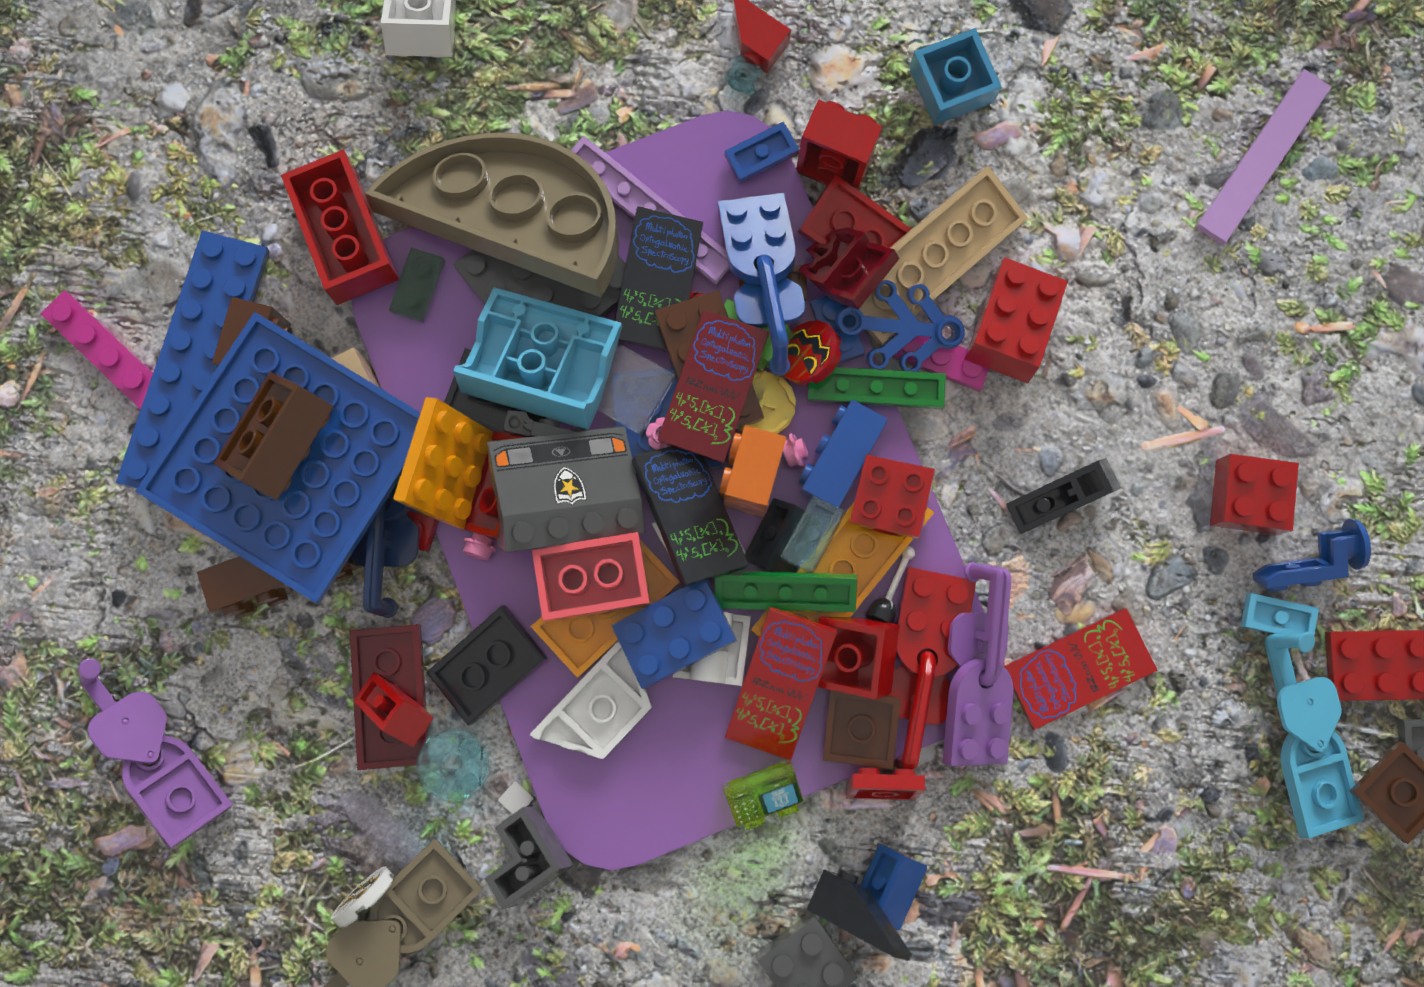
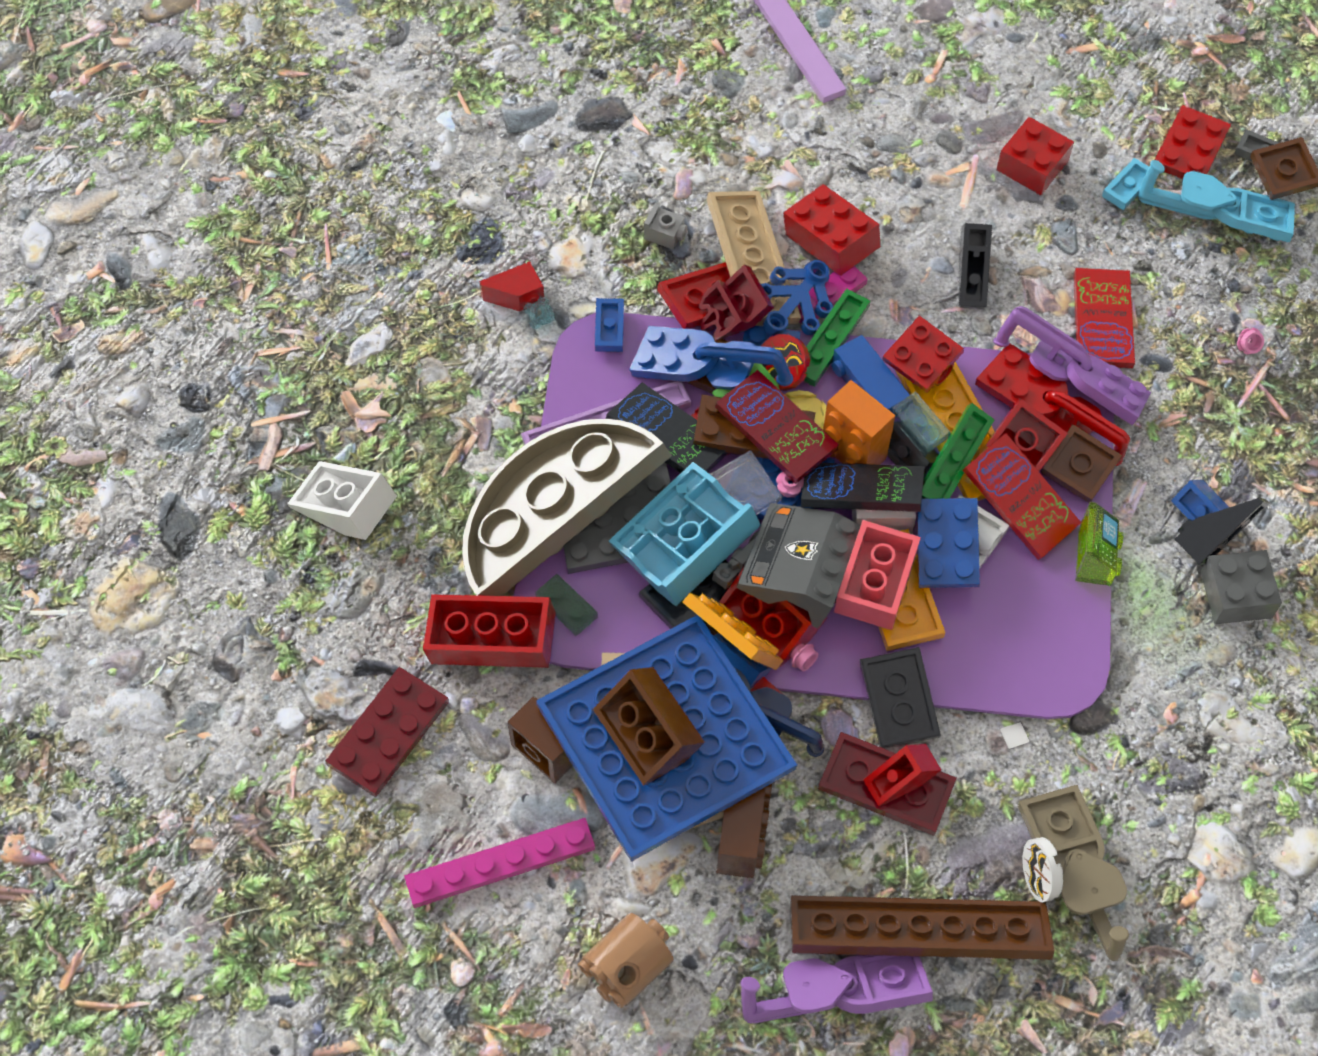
camera: 60 degrees left, 20 degrees down
(69, 539) = (627, 959): none -> medium nougat cylinder
(203, 192) = (387, 731): none -> dark red plate
(217, 272) = (531, 798): blue plate -> none
(247, 803) = (920, 927): none -> reddish brown plate
(465, 780) = (971, 772): clear light blue plate -> none
(535, 857) = (1070, 727): dark grey brick -> none
(597, 708) = (975, 631): white wing -> none
(837, 144) = (640, 266): red brick -> none
(876, 786) = (1132, 468): red plate -> none
(883, 608) = (997, 409): hinge -> none
(922, 131) = (664, 227): none -> light grey brick
(954, 76) = (629, 182): dark azure brick -> none
(1137, 846) = (1255, 343): none -> bright pink plate
(1335, 550) = (1103, 129): blue piece -> none

